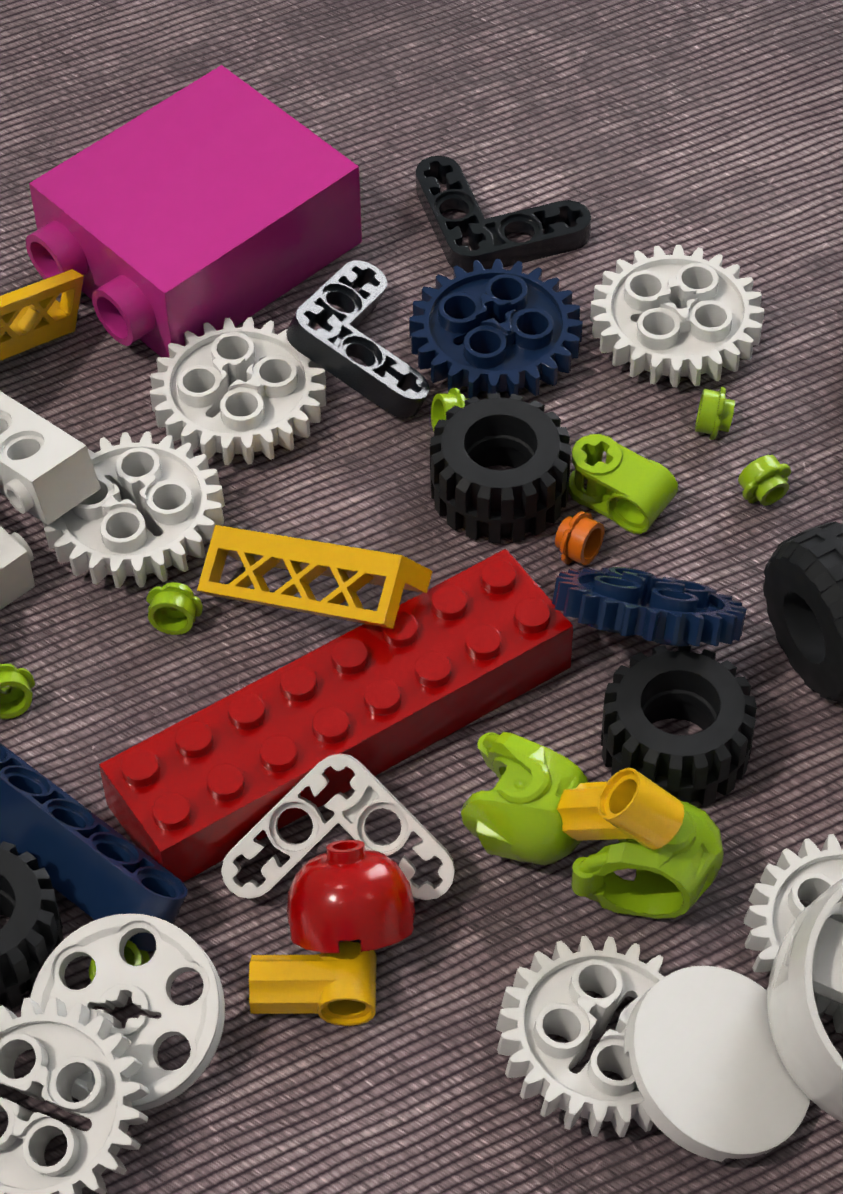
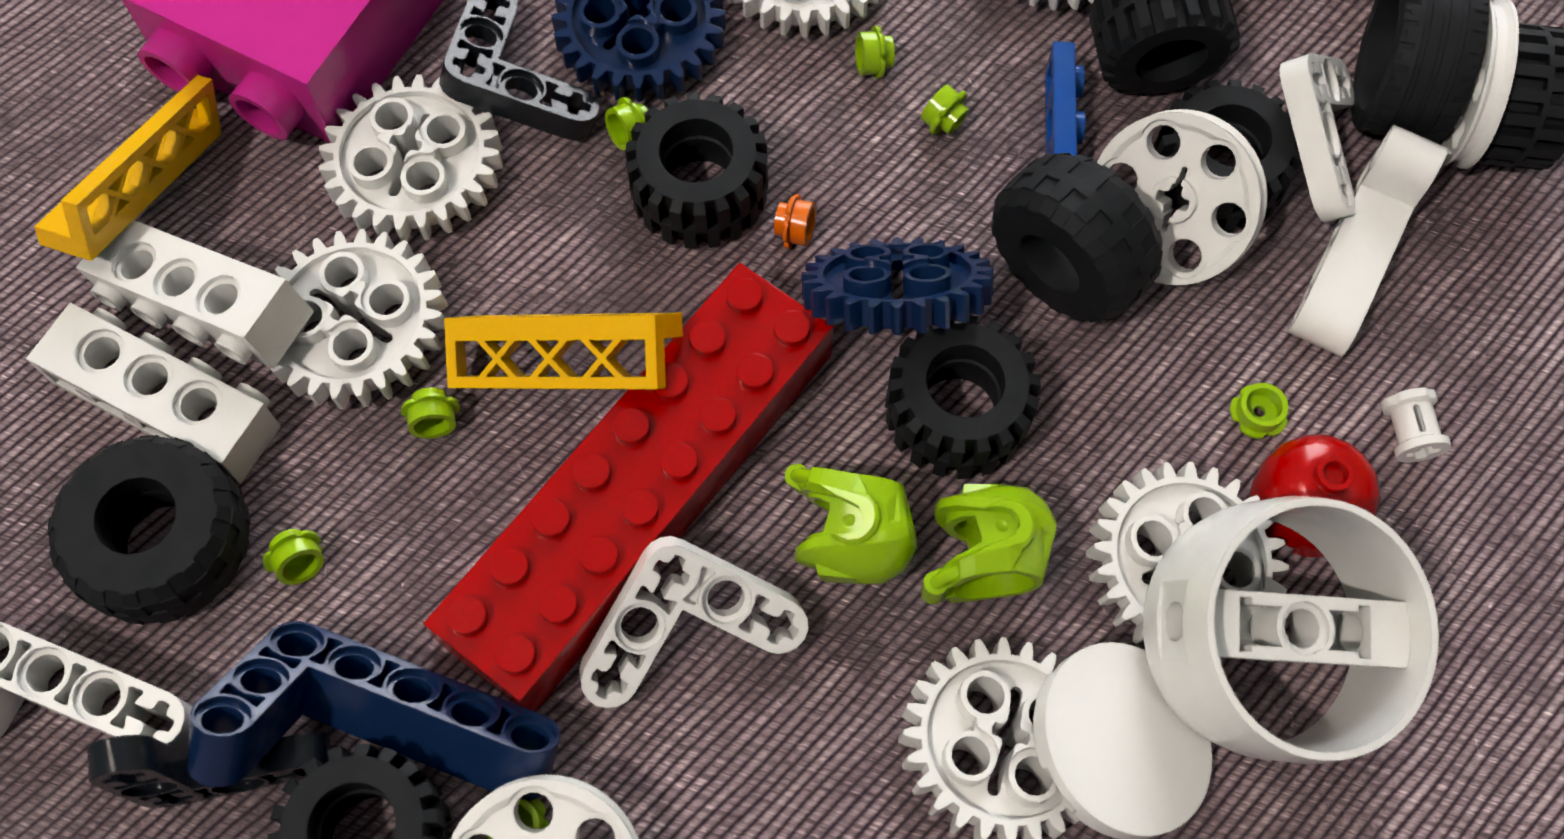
camera: 20 degrees left, 15 degrees up
(326, 984) = (730, 773): yellow piece -> none
(349, 898) = (723, 693): red cylinder -> none
(621, 809) = (963, 527): yellow piece -> none
(624, 487) = (818, 154): lime piece -> none

